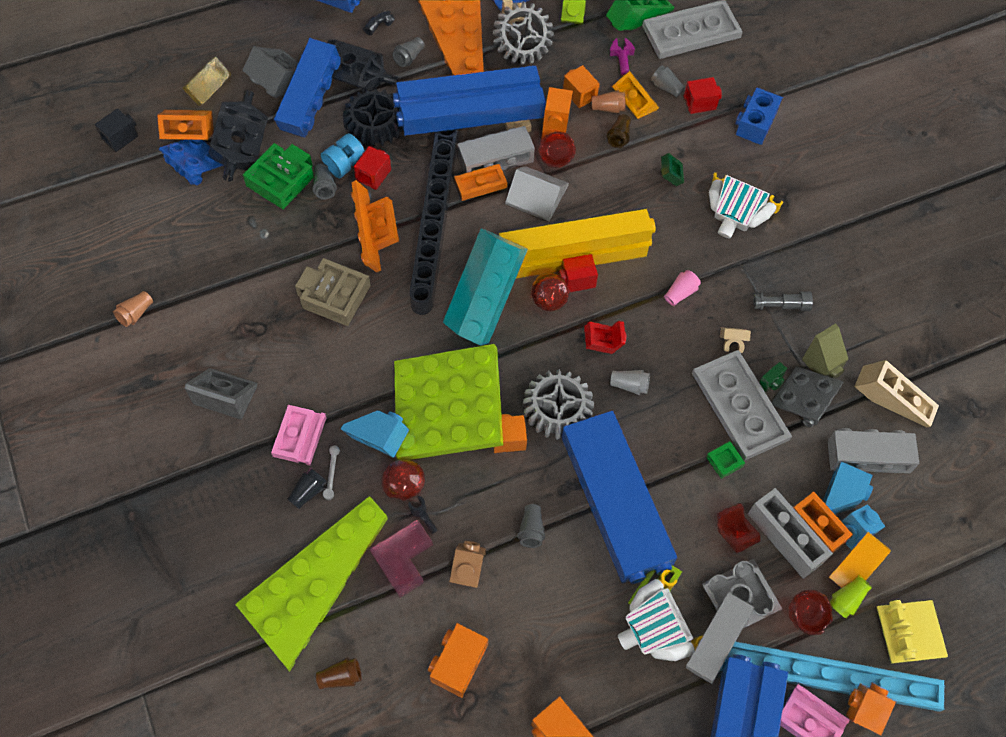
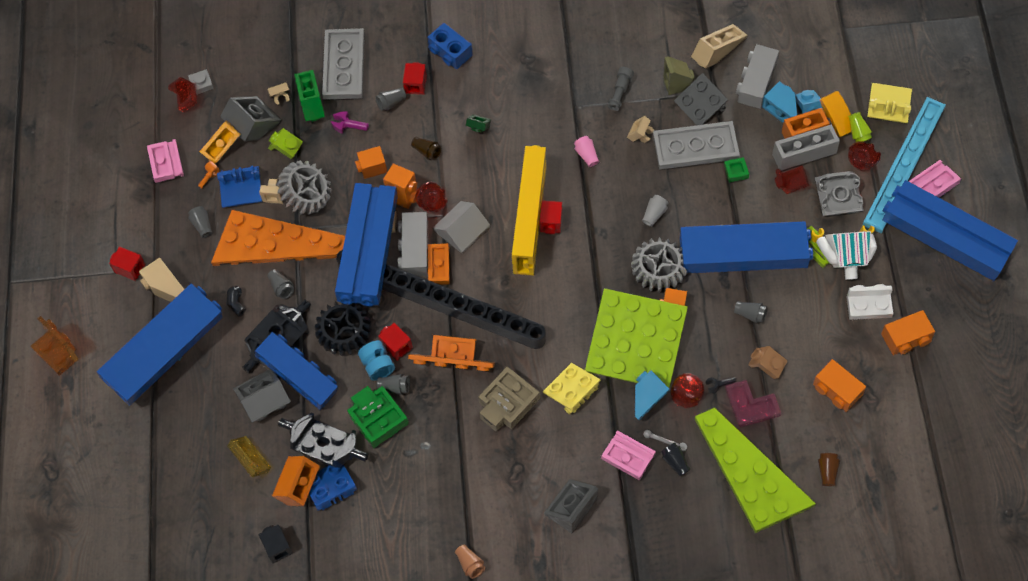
camera: 65 degrees left, 0 degrees up
(369, 354) = (572, 387): none -> light yellow hinge
(484, 287) = (552, 281): teal slope -> none
(550, 291) = (561, 242): clear red hair -> none
(594, 674) = (869, 302): none -> white bracket
(605, 337) = (613, 215): red bracket -> none
(609, 102) = (395, 145): nougat cone -> none
(635, 96) = (393, 127): light orange slope -> none
(719, 638) = (868, 214): light grey tile -> none
(739, 205) = (528, 88): white torso -> none
(773, 378) = (682, 116): dark green plate -> none
(870, 707) = (936, 143): orange brick -> none

